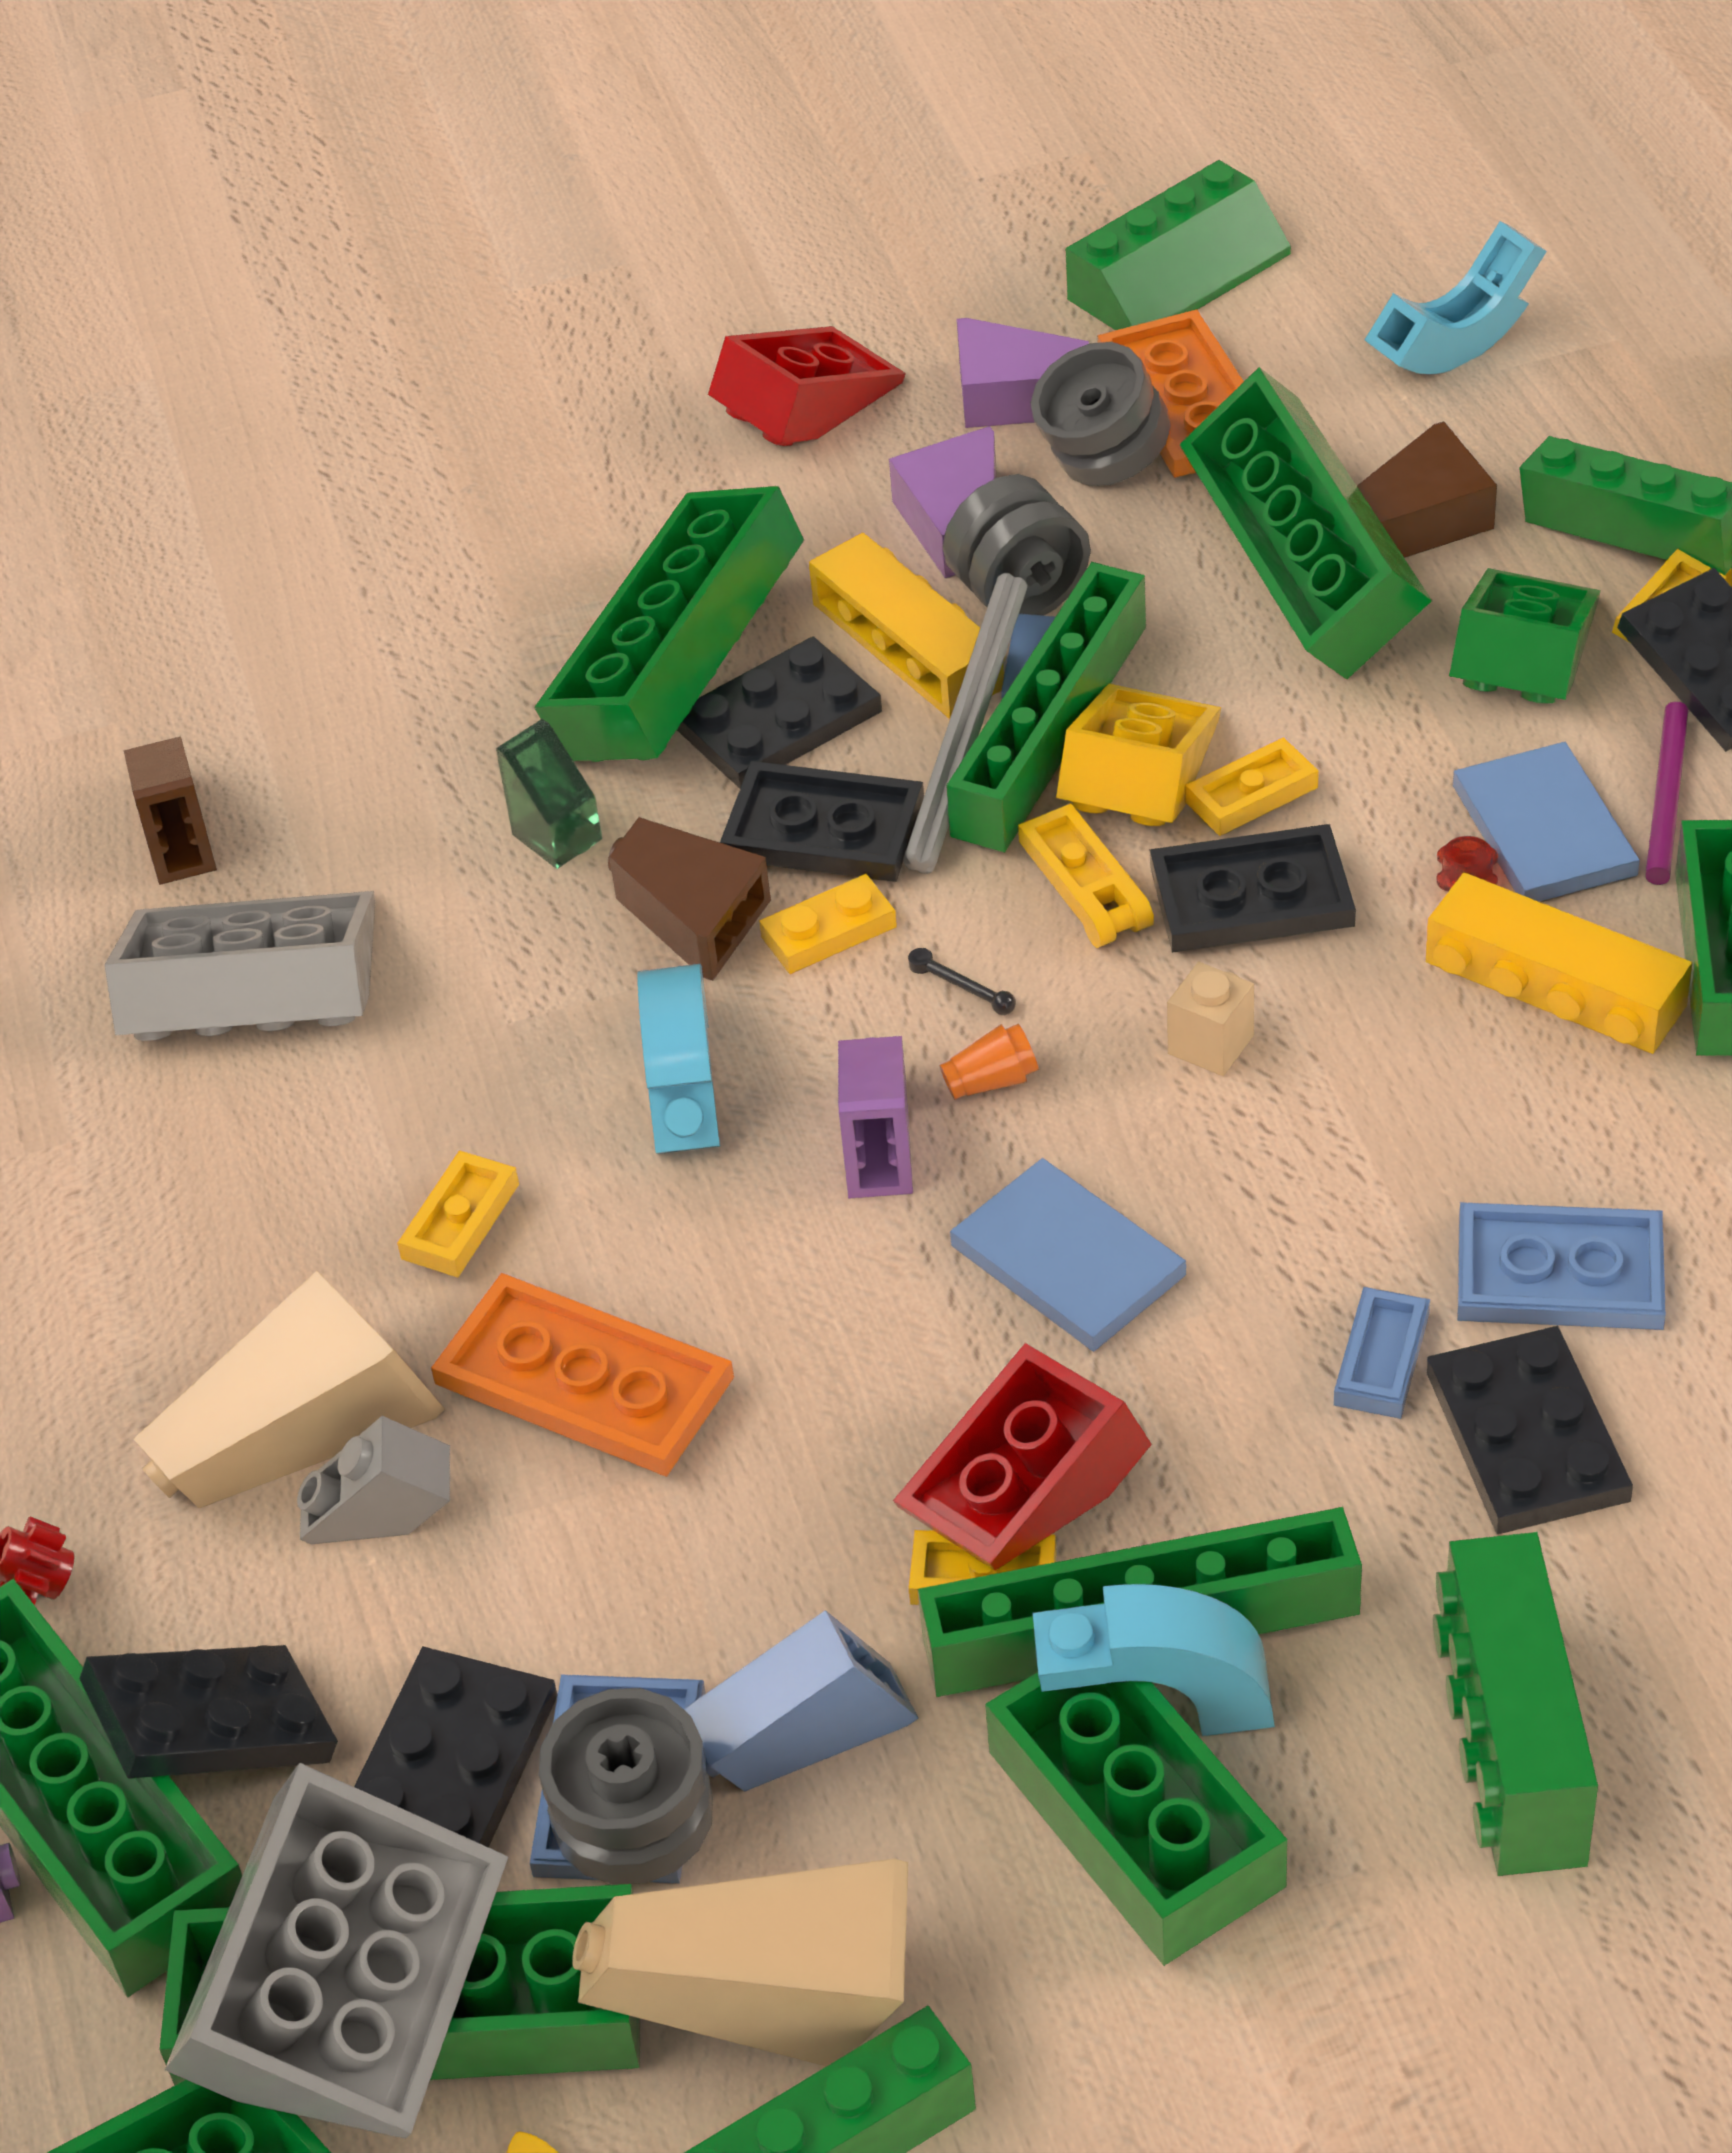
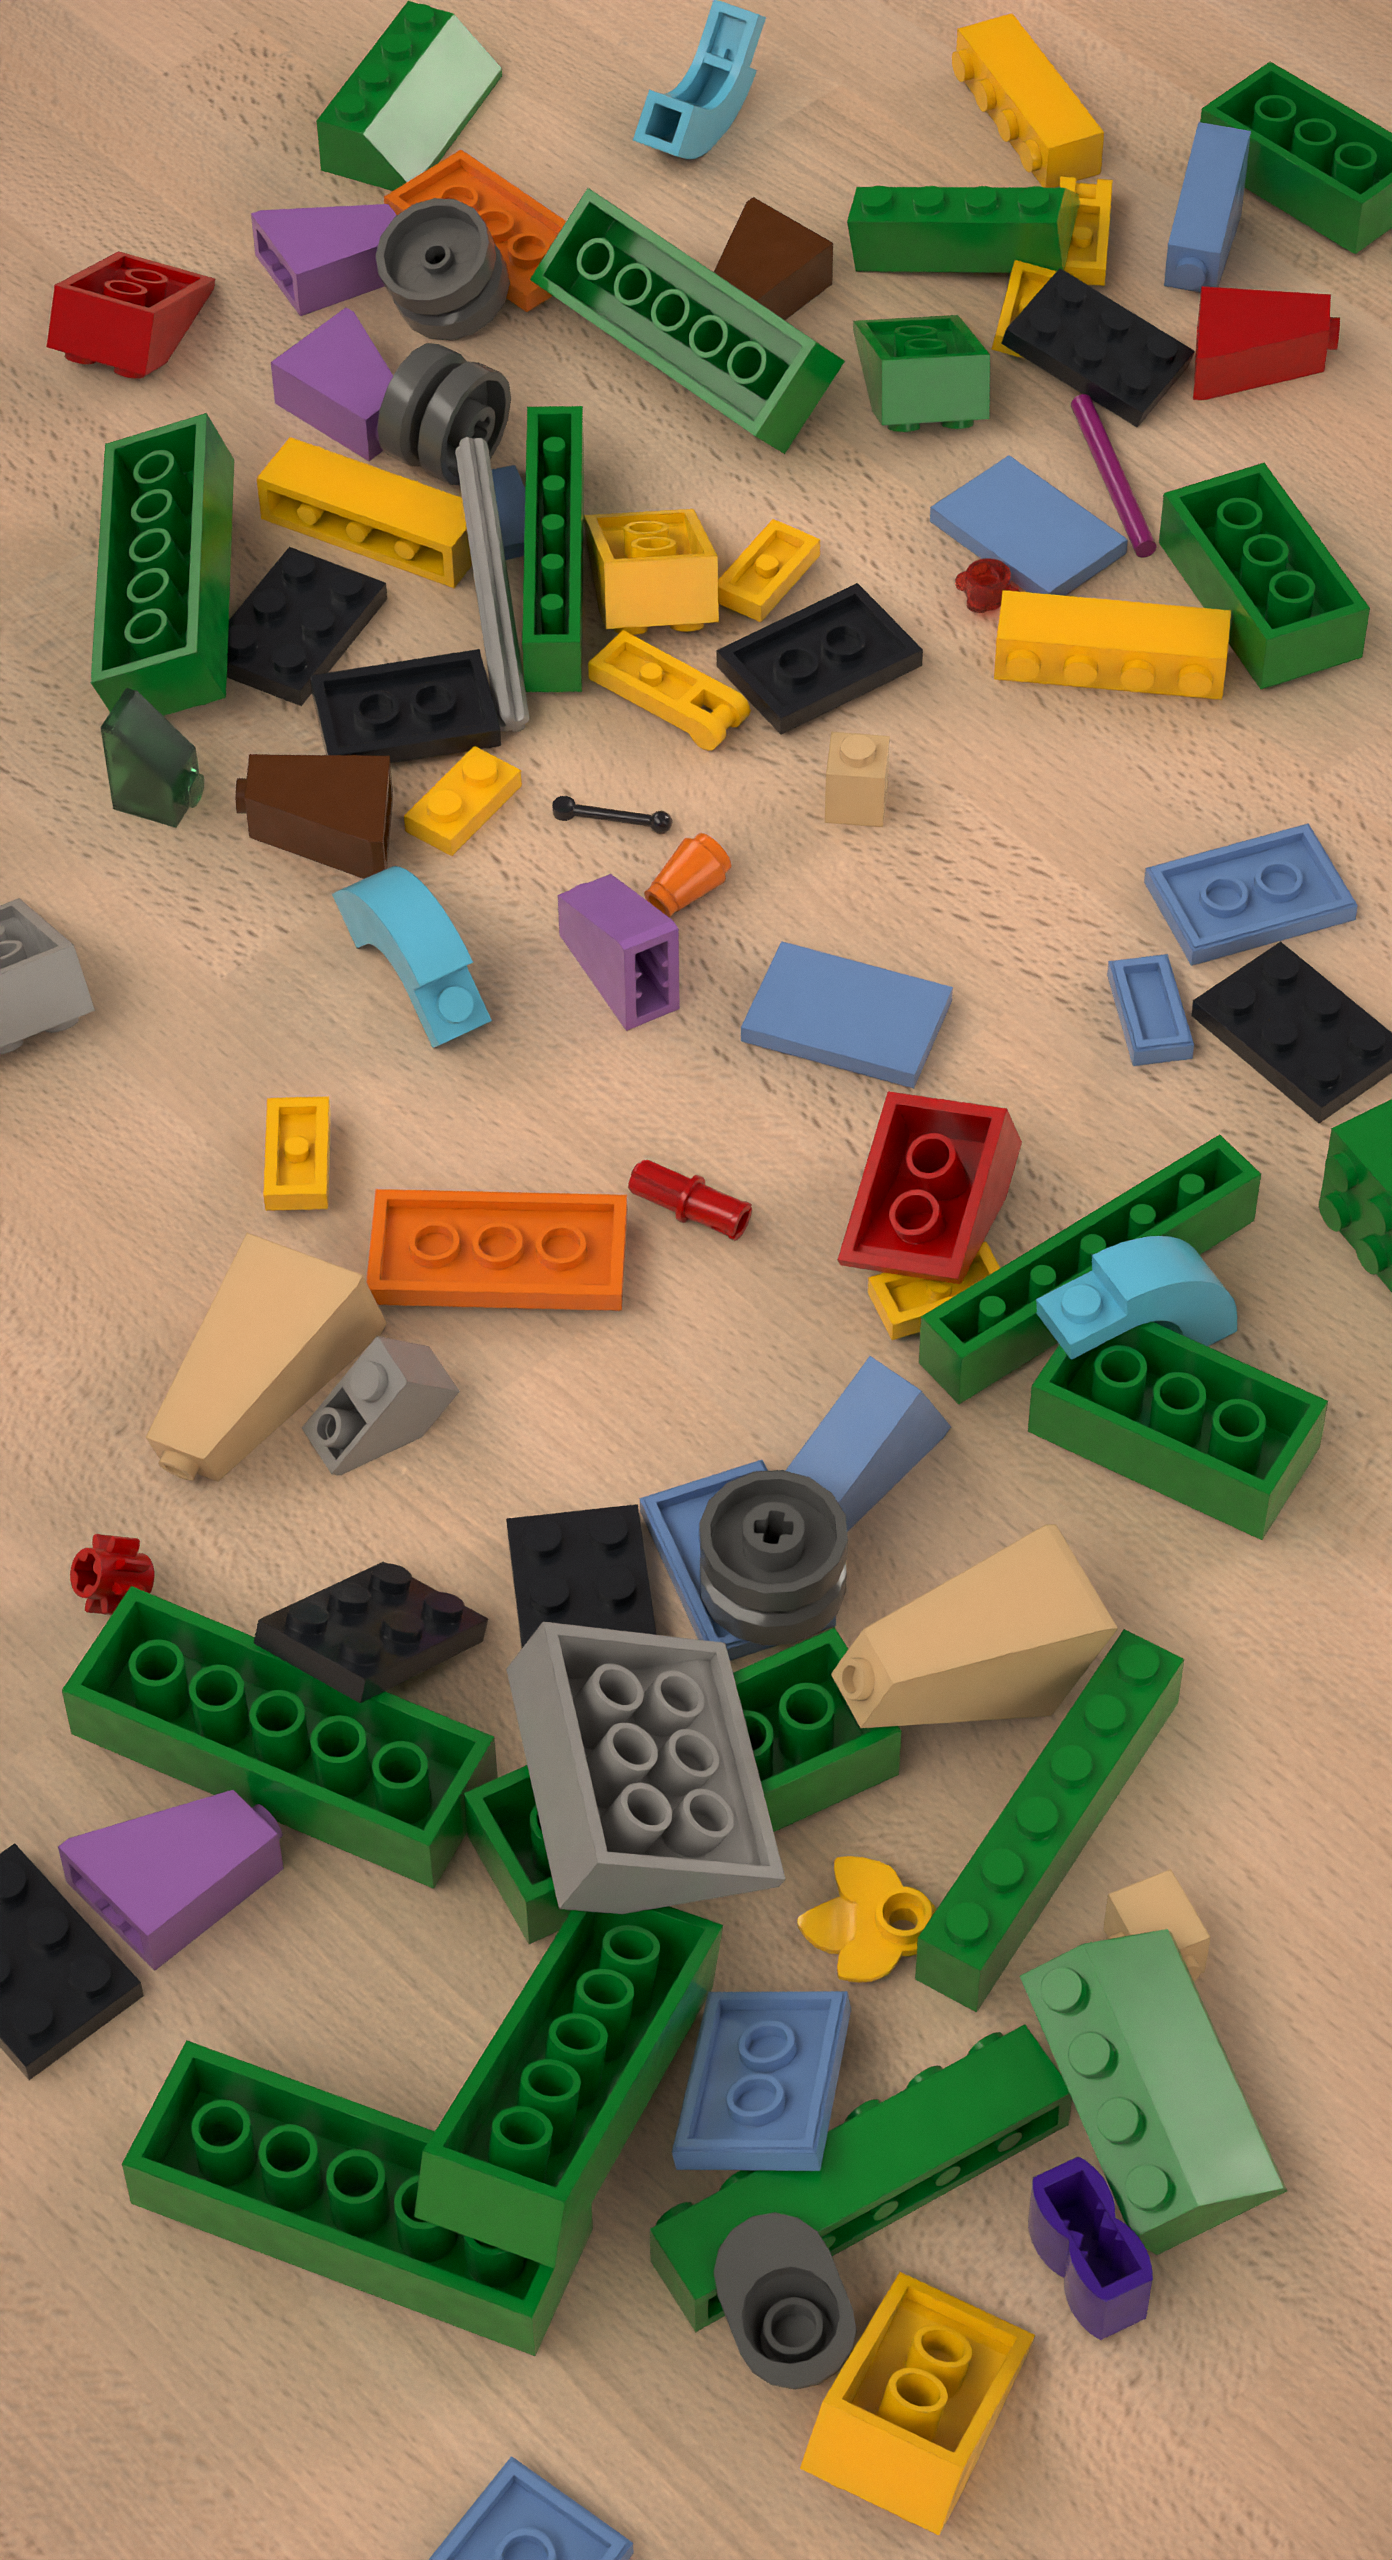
camera: 30 degrees left, 5 degrees up
(798, 1388) = (690, 1199): none -> red axle

